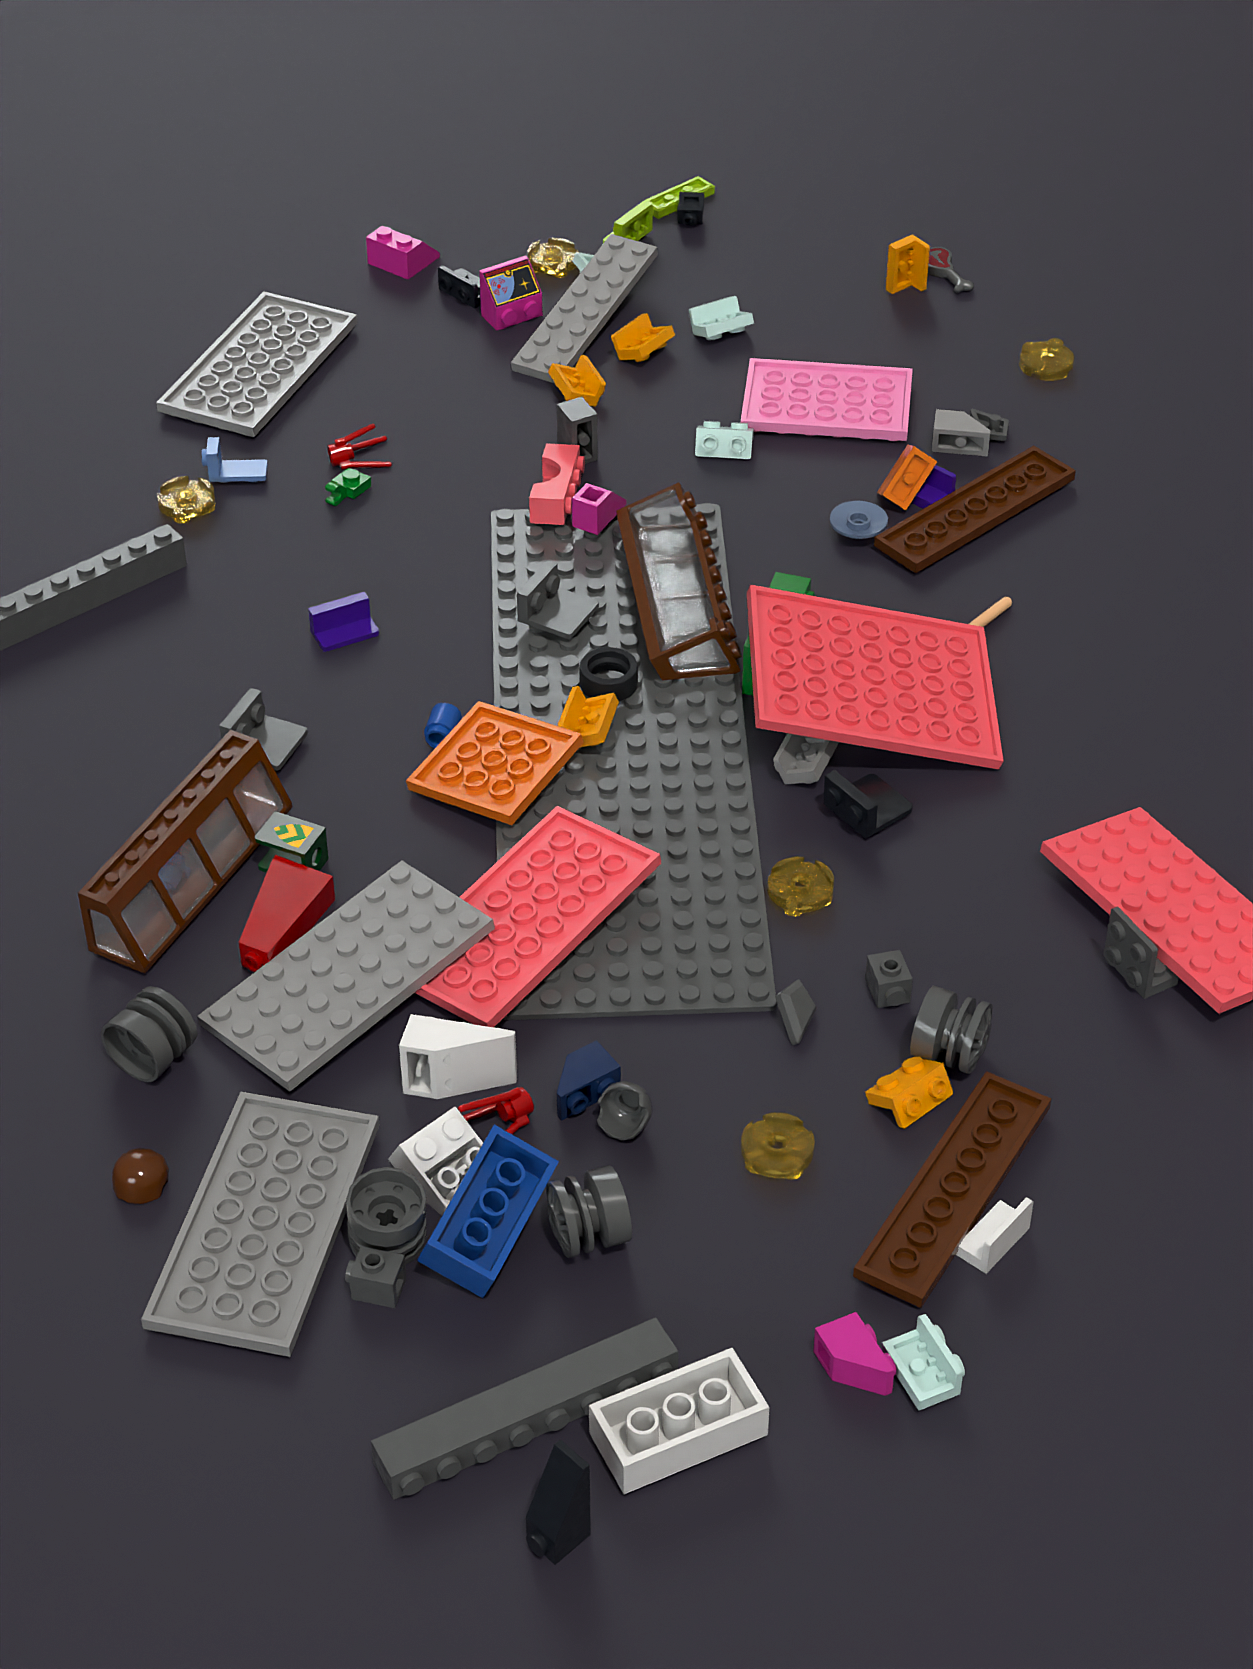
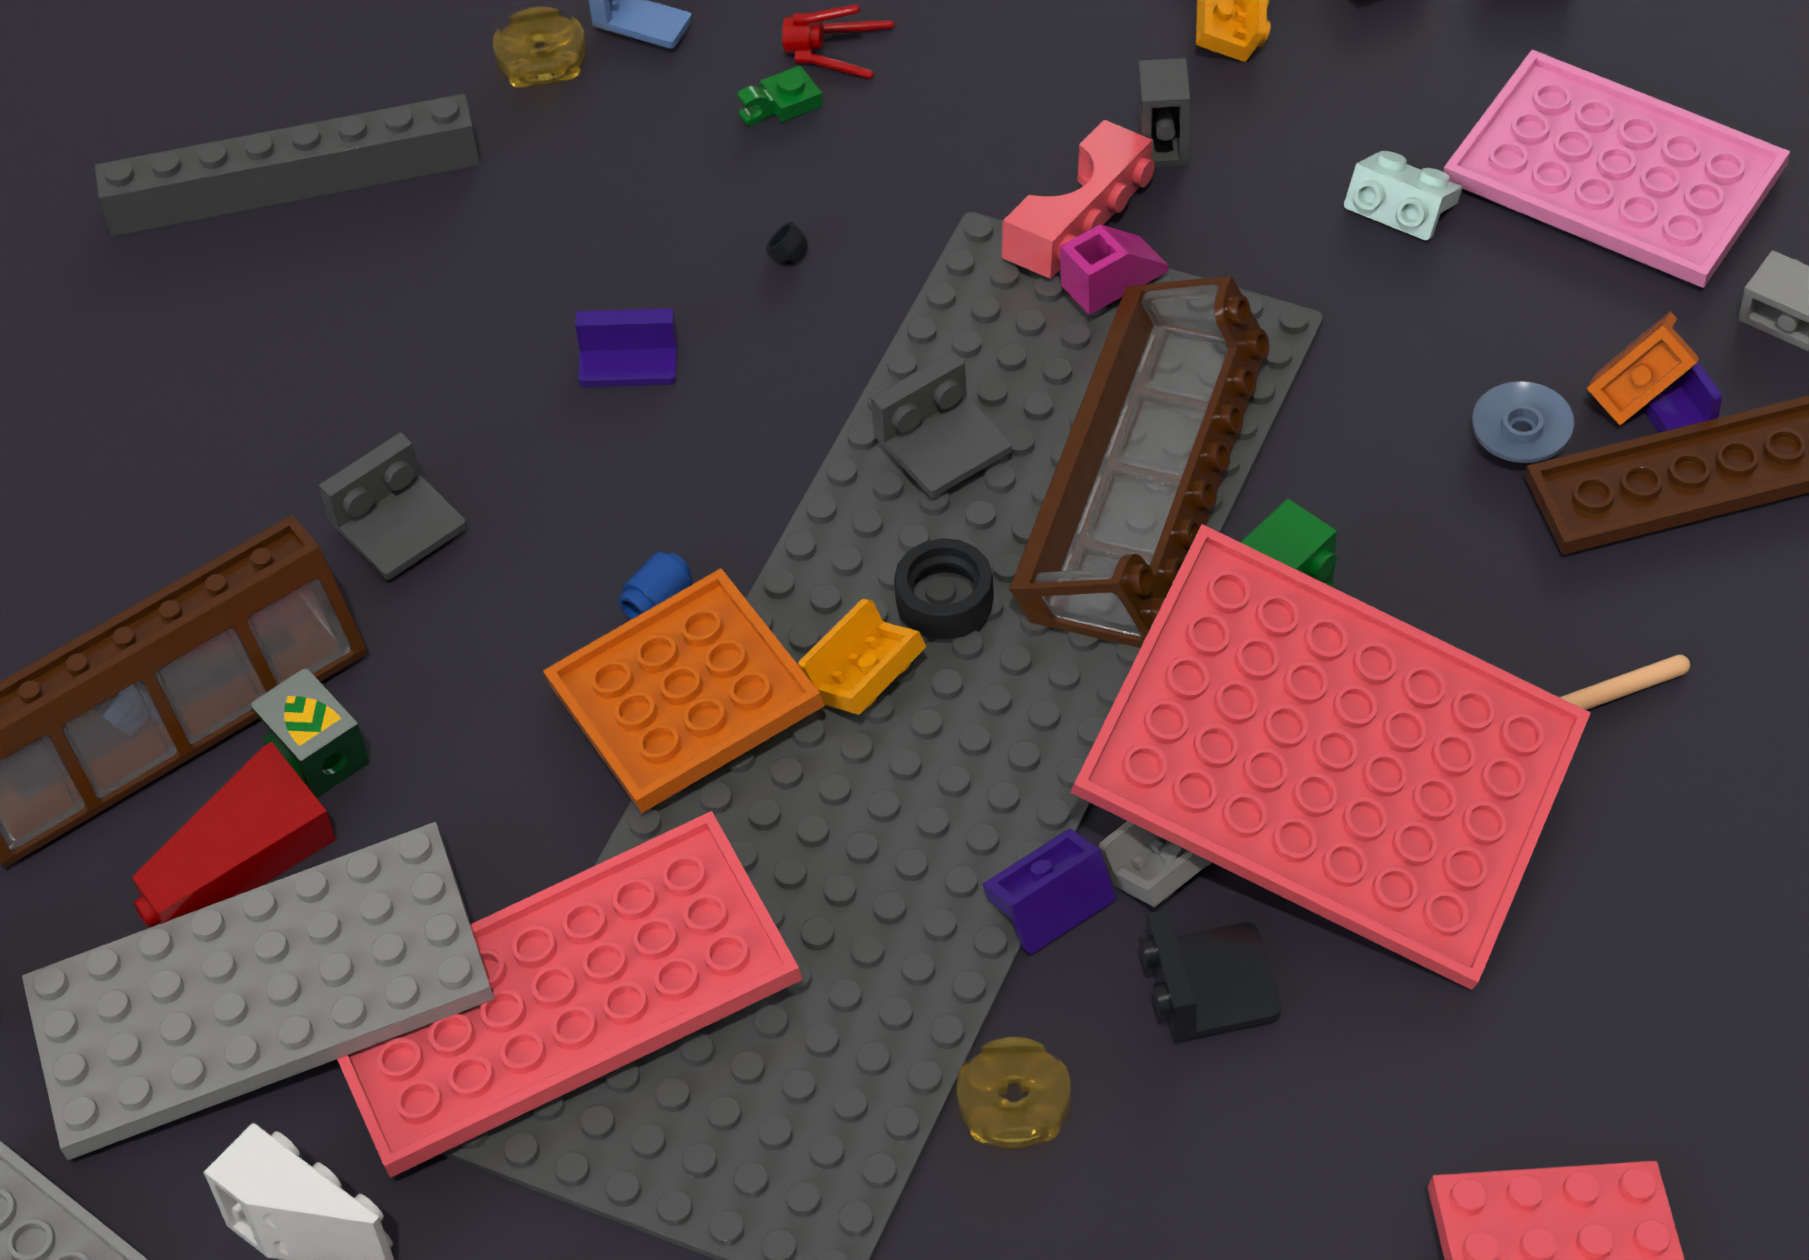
camera: 30 degrees right, 10 degrees up
(401, 550) = (788, 244): none -> black hinge
(759, 787) = (1052, 889): none -> dark purple panel

